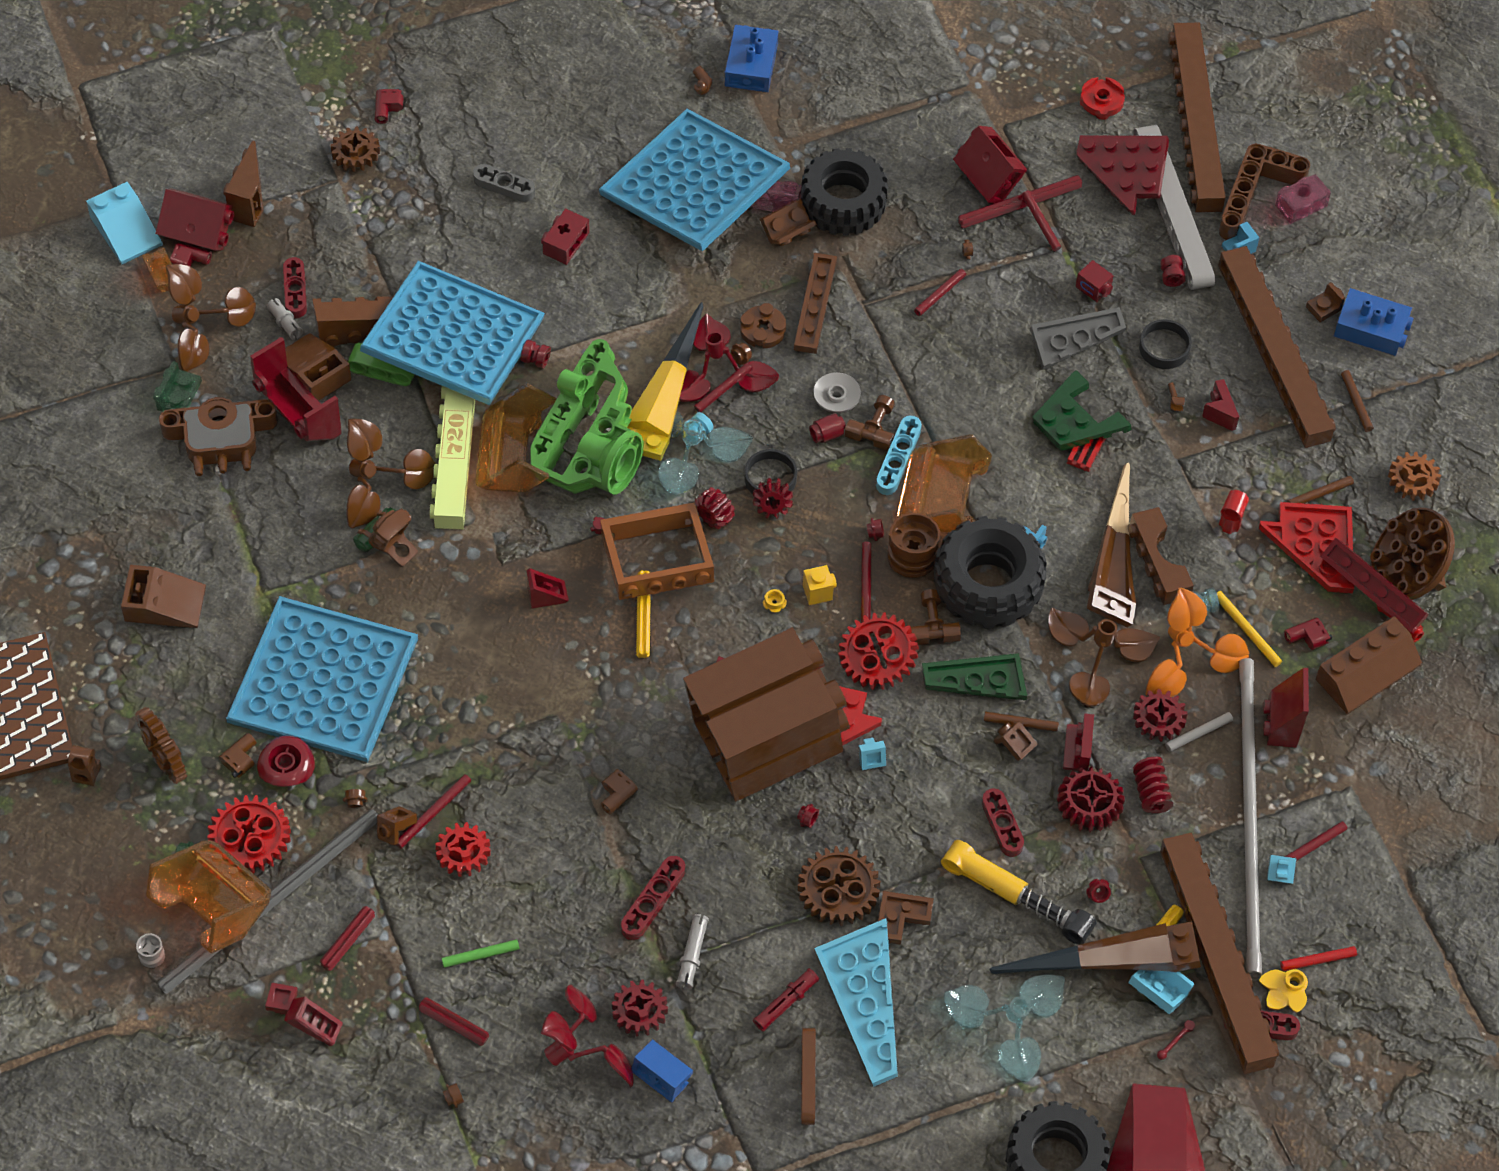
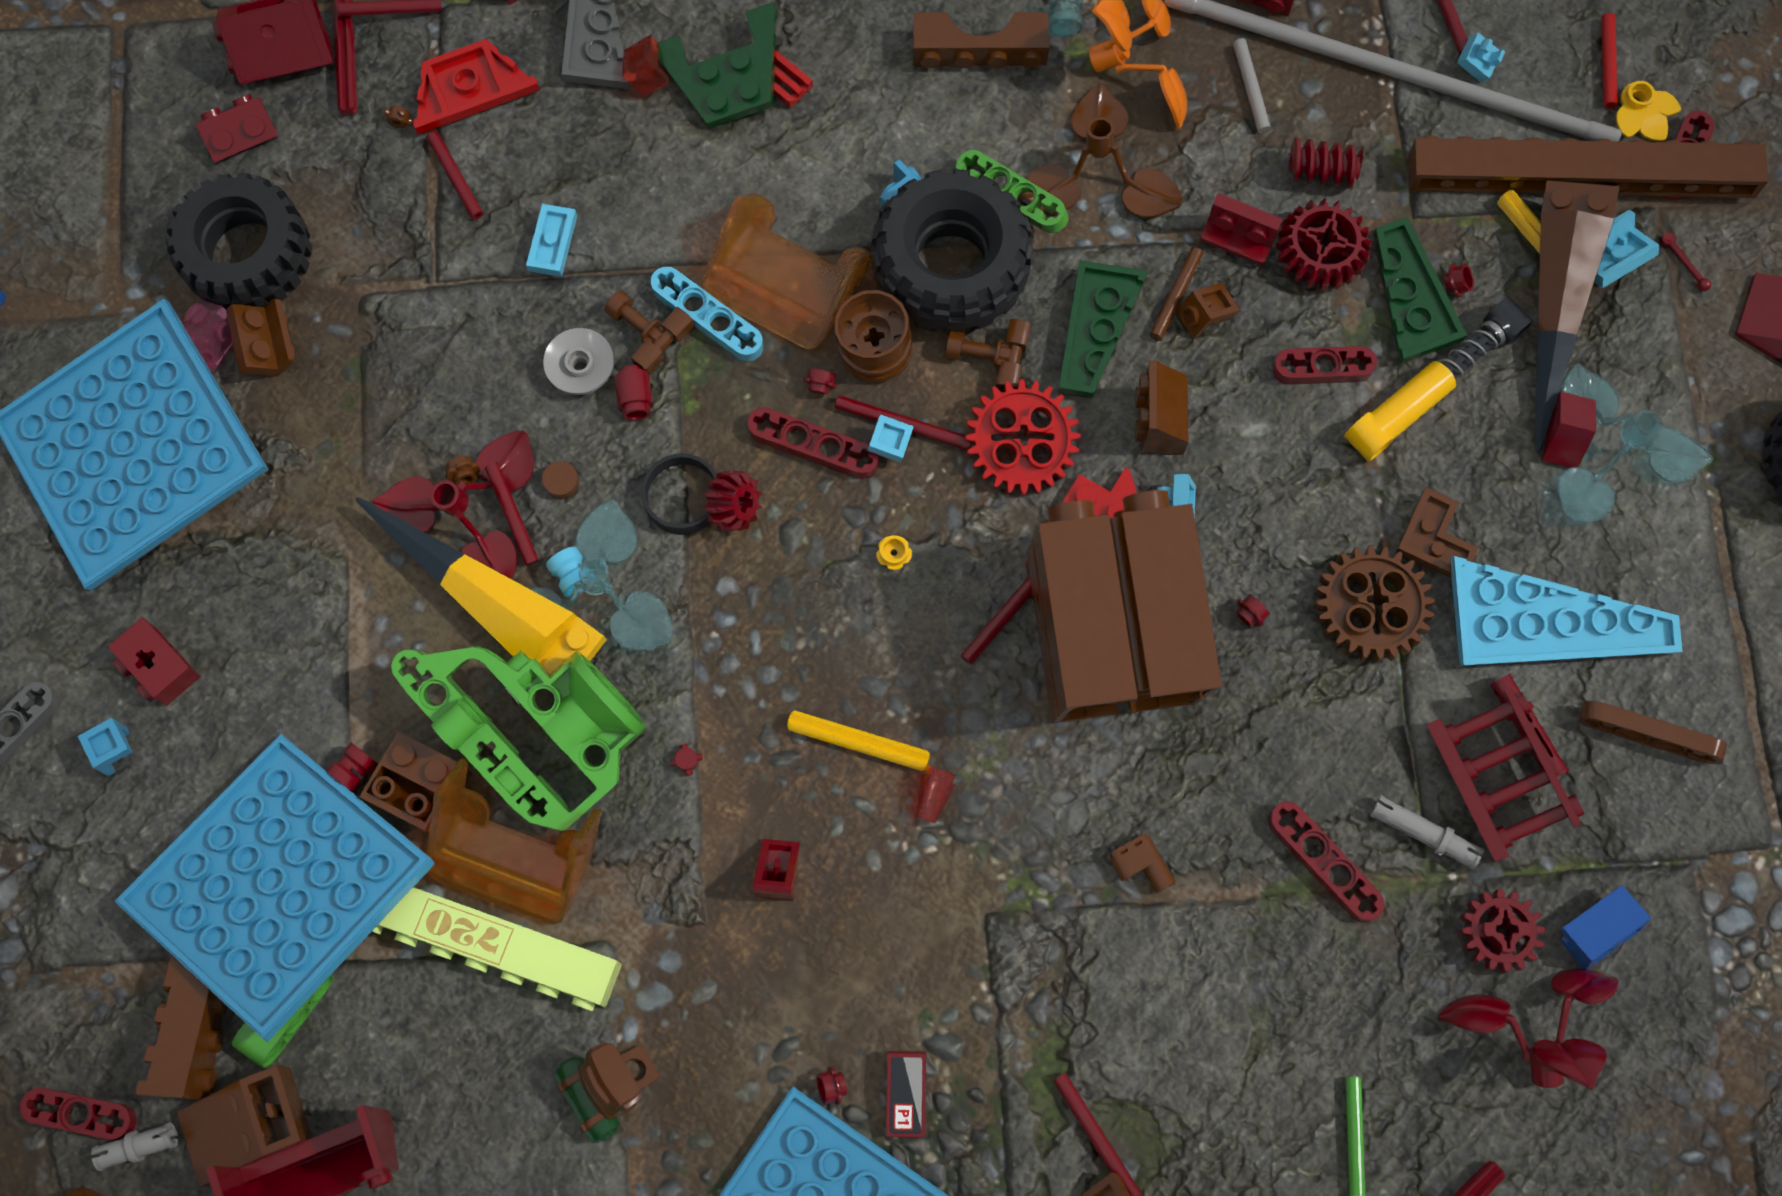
camera: 70 degrees left, 15 degrees up
(362, 441) = (458, 1088): reddish brown plant -> none
(423, 654) = (831, 1086): none -> dark red plate
(430, 694) = (906, 1094): none -> slope
(462, 860) = (1185, 1136): red gear -> none
(507, 227) = (105, 745): none -> dark azure panel
(538, 374) = (408, 779): none -> reddish brown slope
(623, 662) = (933, 793): none -> clear red cone
(649, 523) = (710, 689): dark orange window -> none
(714, 508) = (721, 586): dark red gear -> none
(731, 966) = (1483, 804): none -> dark red fence
(756, 408) = (560, 480): none -> reddish brown tile
(763, 315) = (416, 409): reddish brown plate -> none
(815, 303) = (412, 344): reddish brown plate -> none
(818, 584) = (891, 483): yellow brick -> none
(835, 537) = (815, 438): none -> dark red beam
(848, 574) = (890, 438): none -> medium azure tile
(915, 355) = (551, 240): none -> medium azure plate
(922, 168) = (236, 128): none -> dark red bracket
(927, 724) = (1162, 410): none -> reddish brown slope
(1004, 278) = (467, 84): none -> red wing
(1011, 980) = (1570, 430): none -> dark red slope
(1054, 600) = (1016, 186): none -> bright green beam
(1056, 366) = (642, 67): none -> clear red bracket
(1070, 870) = (1415, 297): none -> dark green wing
(1112, 579) = (1001, 109): reddish brown plate -> none
(1150, 719) = (1221, 121): dark red gear -> none

